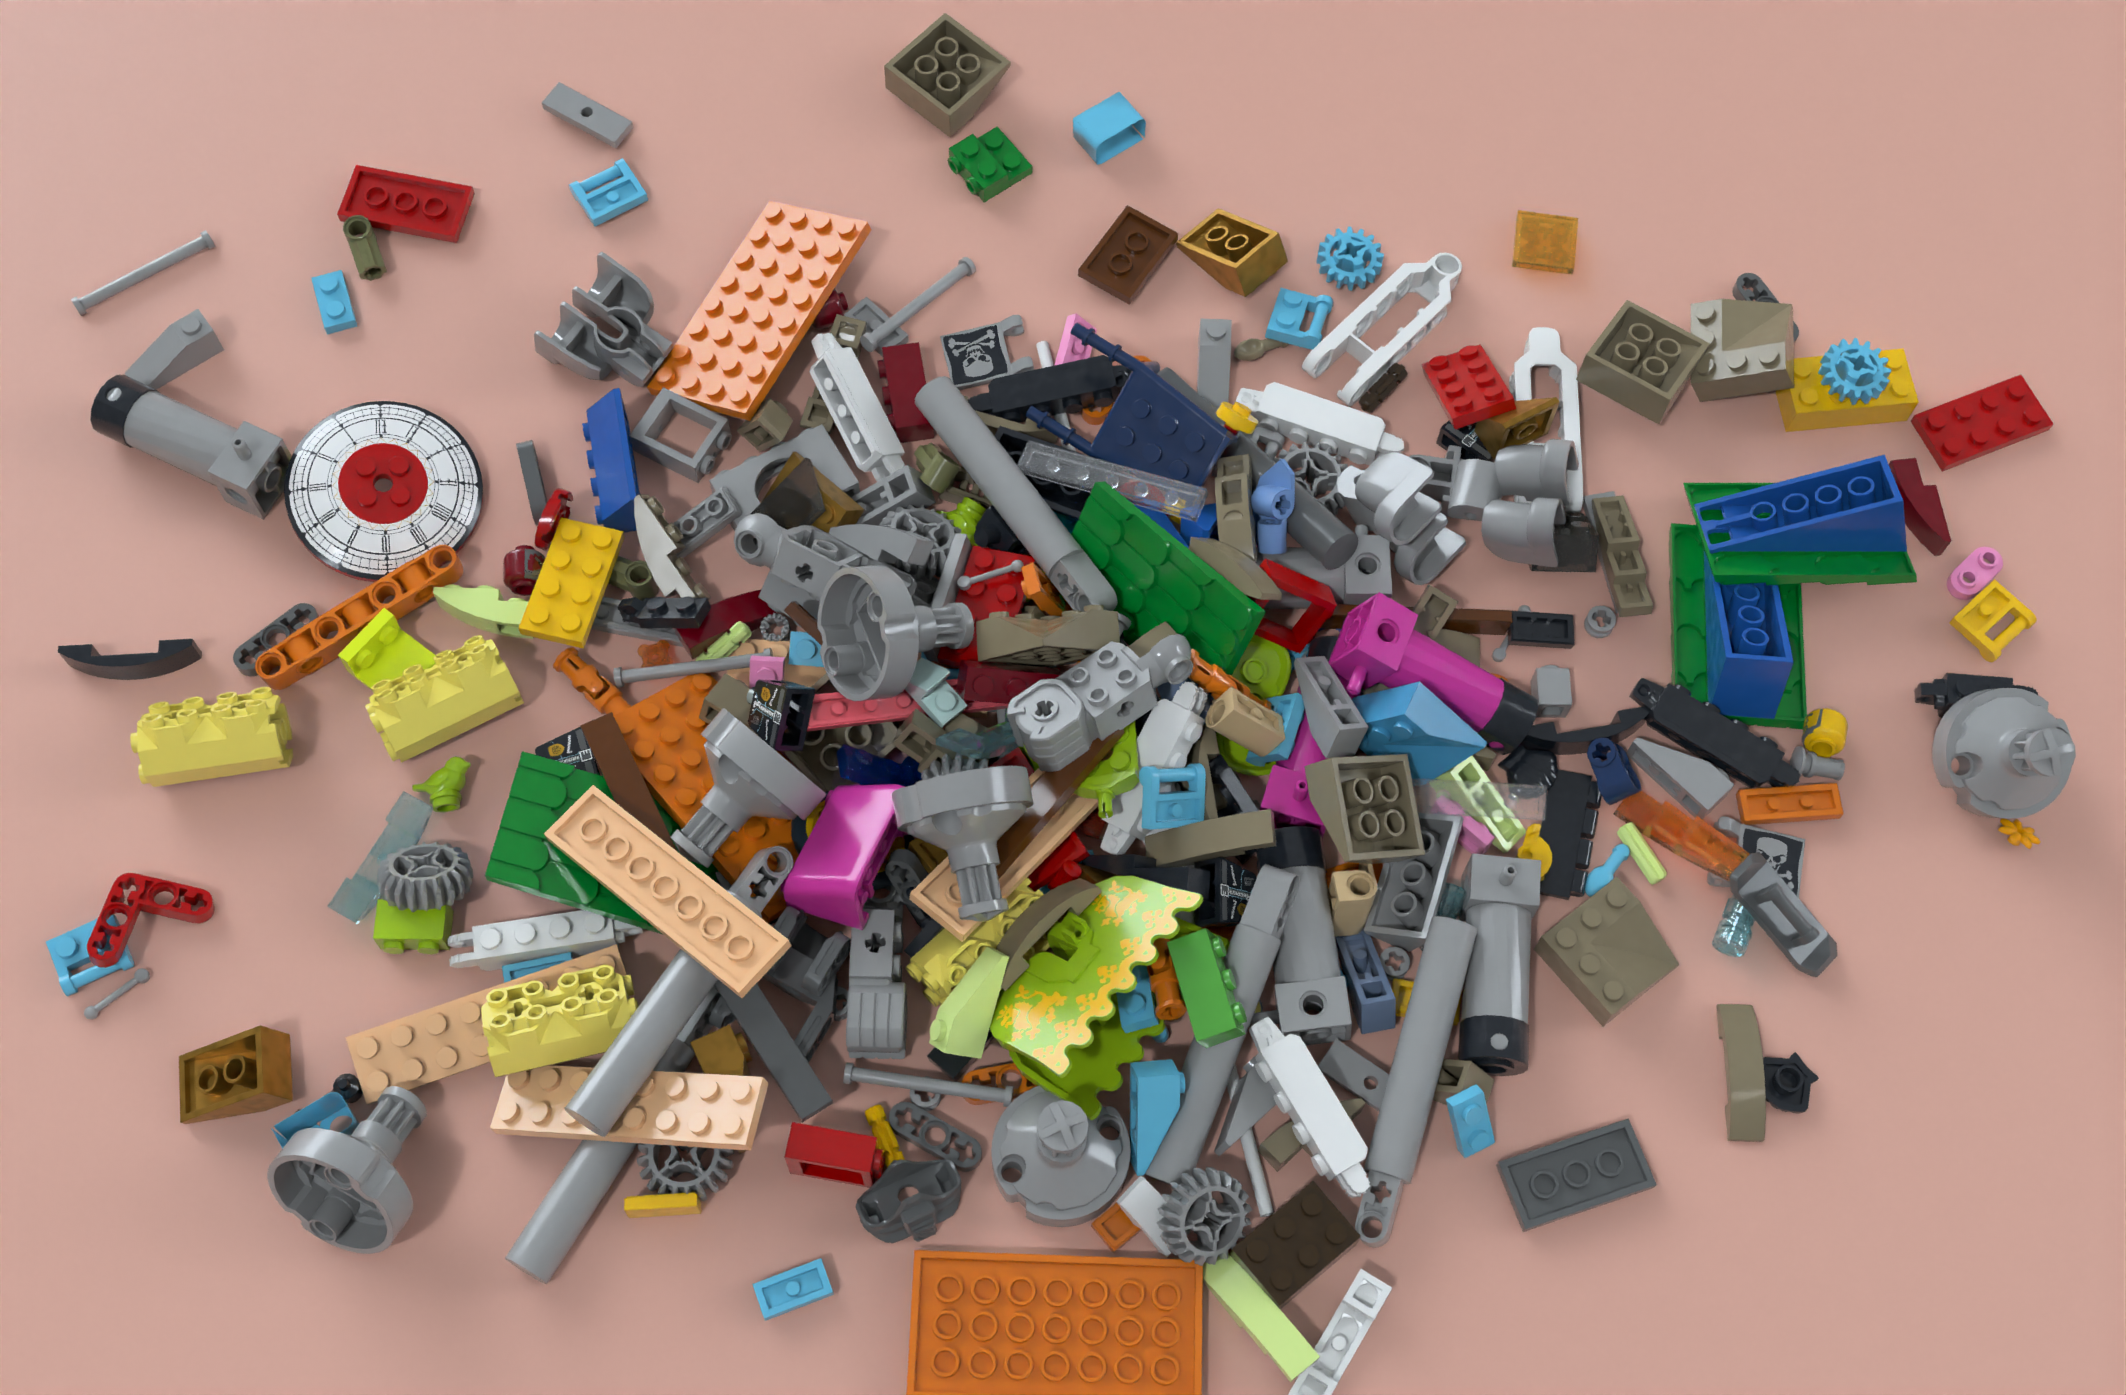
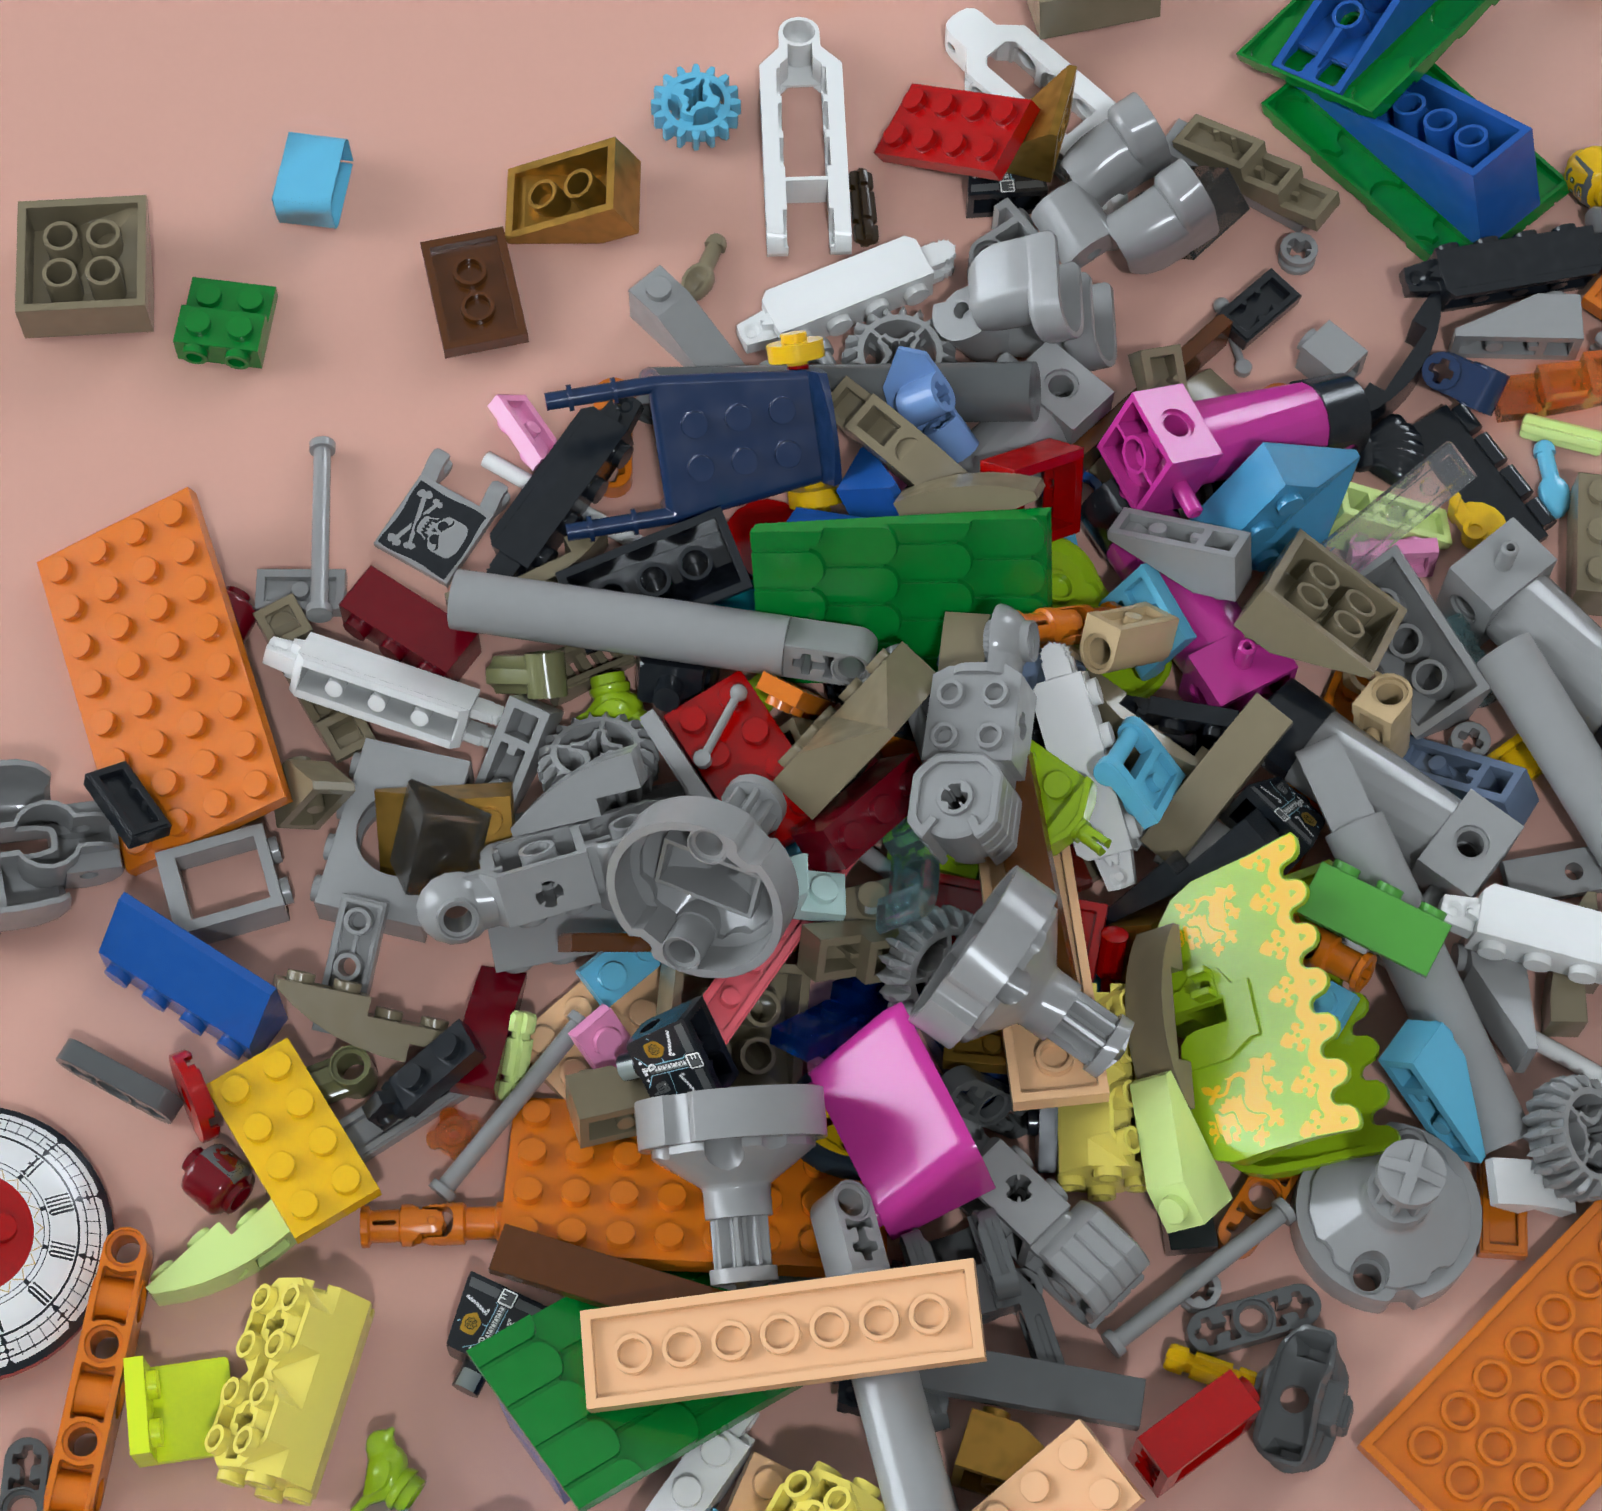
camera: 45 degrees left, 0 degrees up
(673, 351) = (127, 804): none -> black plate
(780, 621) = (536, 978): light grey bush -> none
(1135, 485) = (729, 525): clear tile -> none
(1289, 315) = (702, 218): medium azure plate -> none

